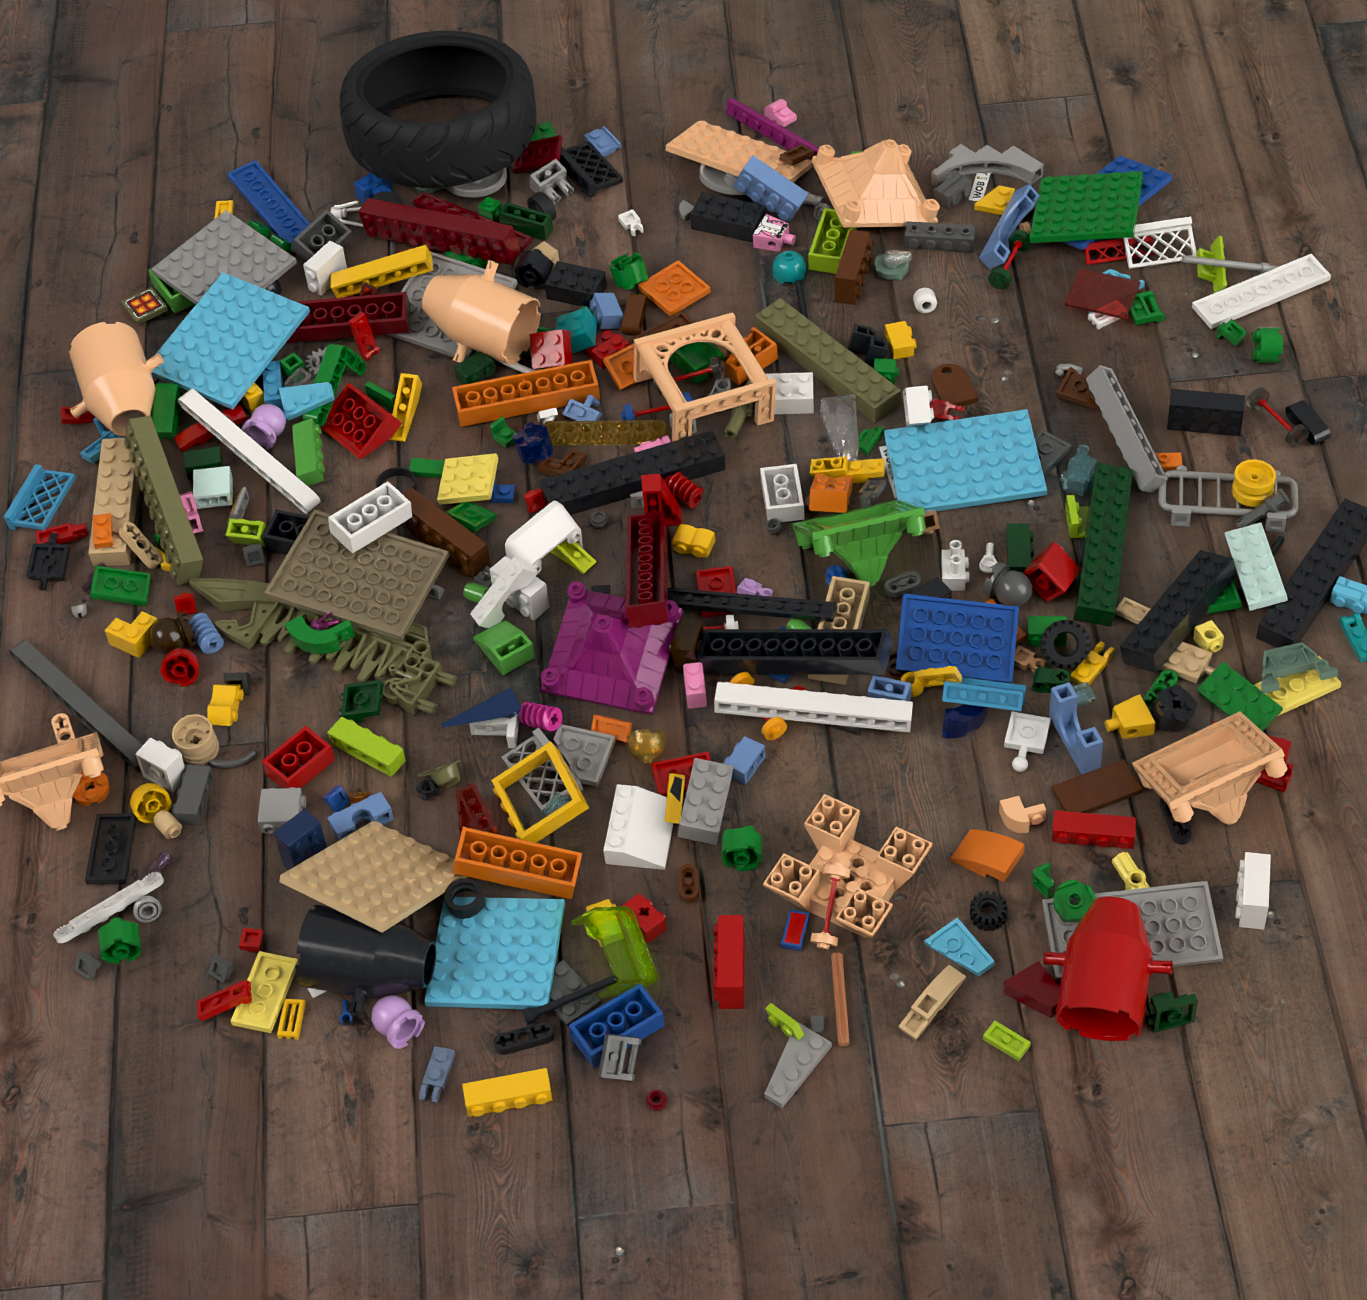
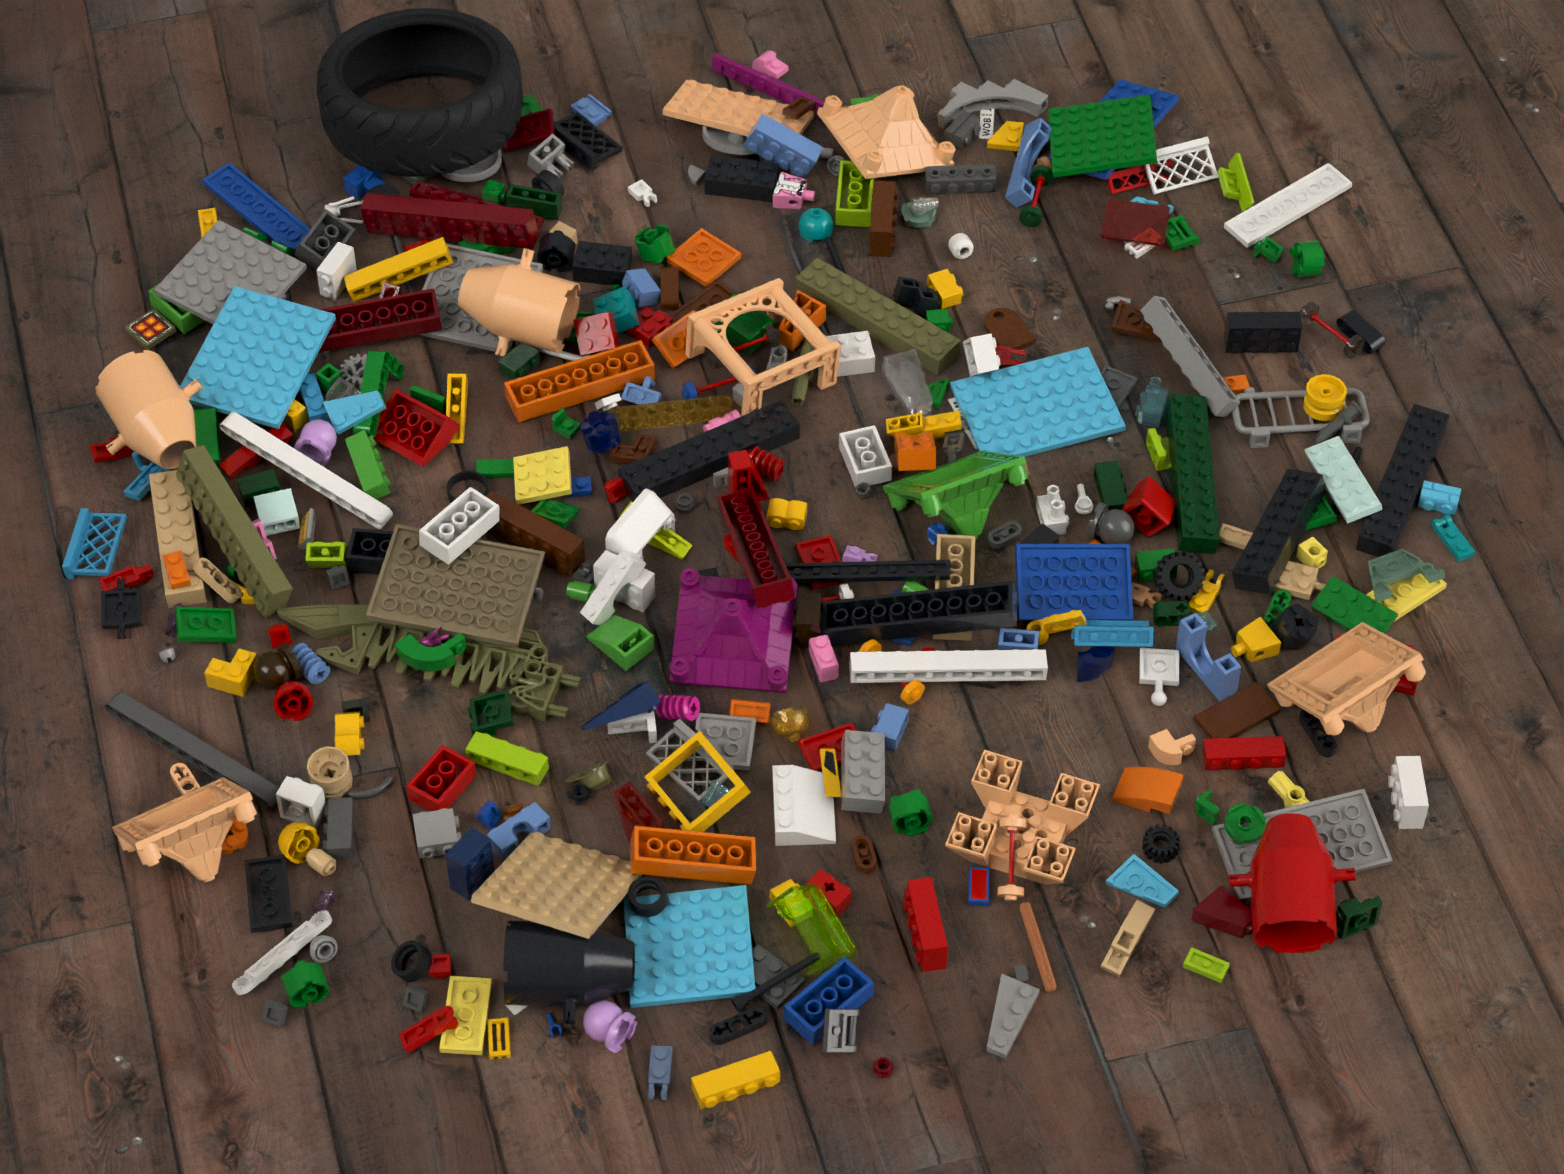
camera: 15 degrees left, 0 degrees up
(217, 928) = (401, 957): none -> black tyre
(363, 336) = (397, 338): red plate -> none
(781, 1019) = (987, 973): lime plate -> none
(1262, 267) = (1284, 181): light grey bar -> none

